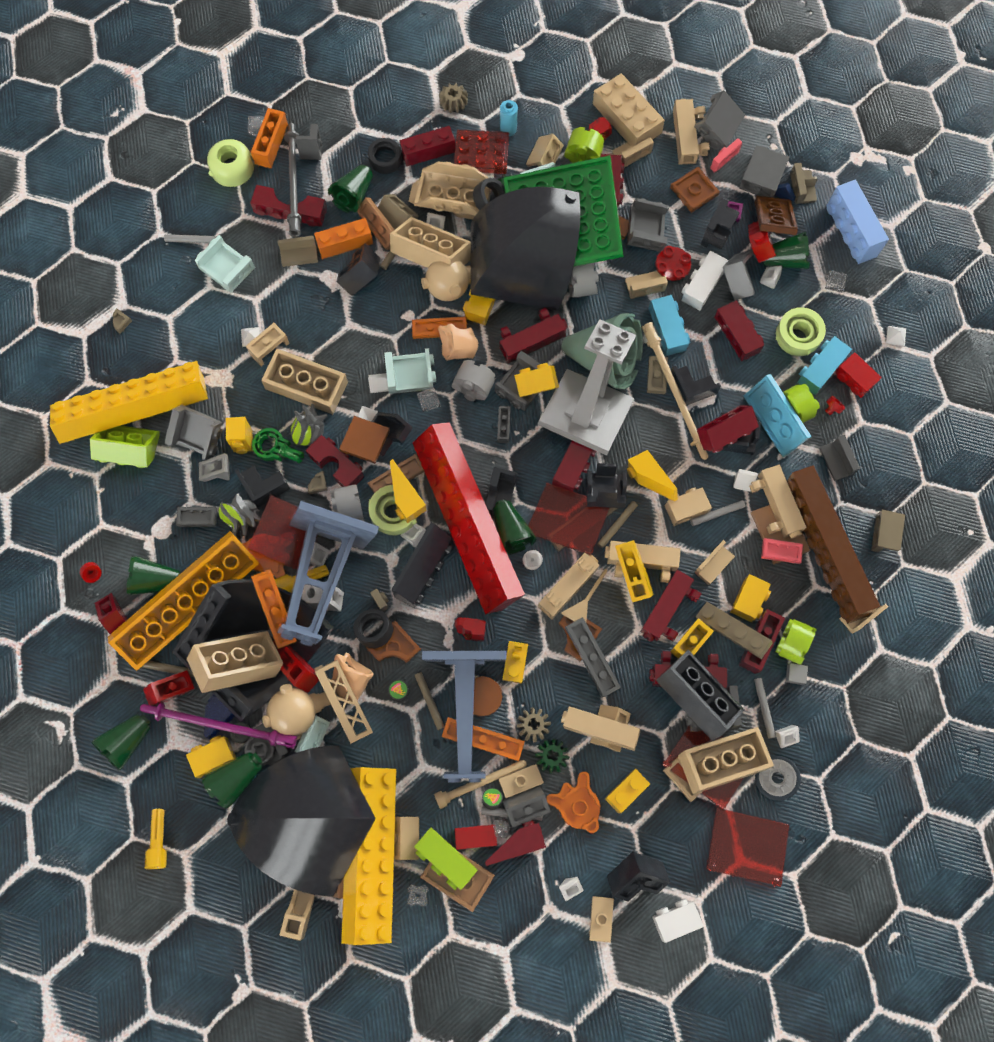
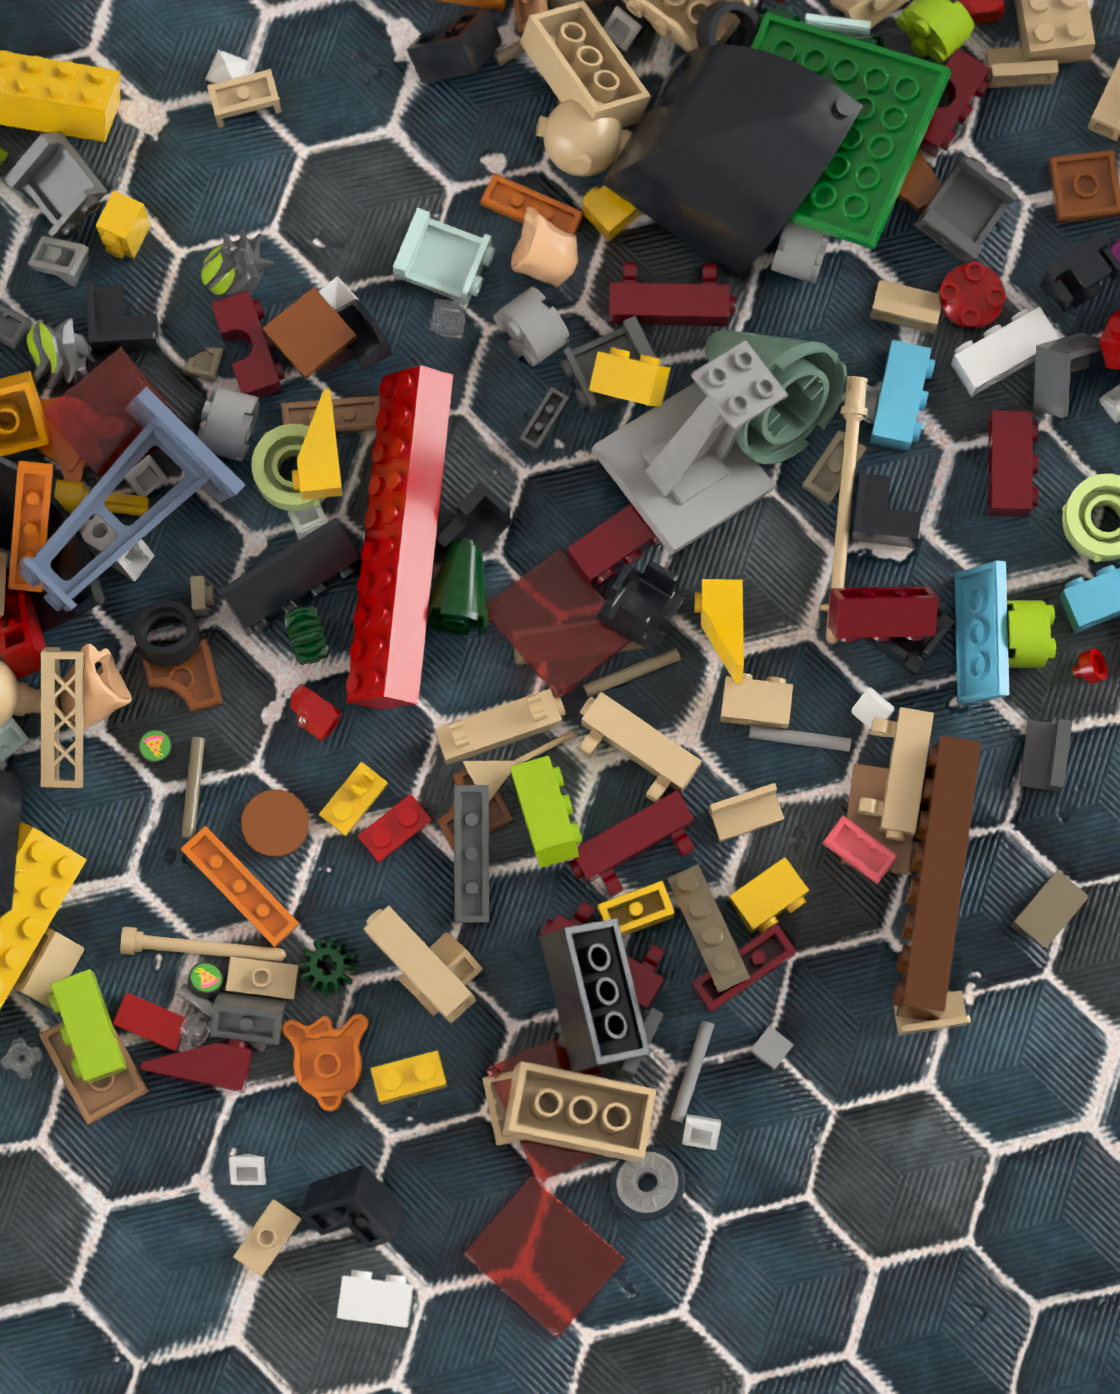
camera: 30 degrees right, 5 degrees up
(280, 449) = (174, 277): green pin -> none
(304, 381) = (269, 190): tan brick -> none
(378, 383) = (383, 249): white slope -> none
(446, 591) = (306, 635): none -> dark green gear
(464, 666) = (244, 802): sand blue piece -> none
(532, 559) = (467, 657): white tile -> none
(538, 720) = (337, 900): dark tan gear -> none
(544, 665) = (394, 828): none -> red plate
(618, 615) = (546, 811): none -> lime brick
(634, 571) = (607, 759): yellow slope -> none
(797, 641) = (795, 997): lime brick -> none

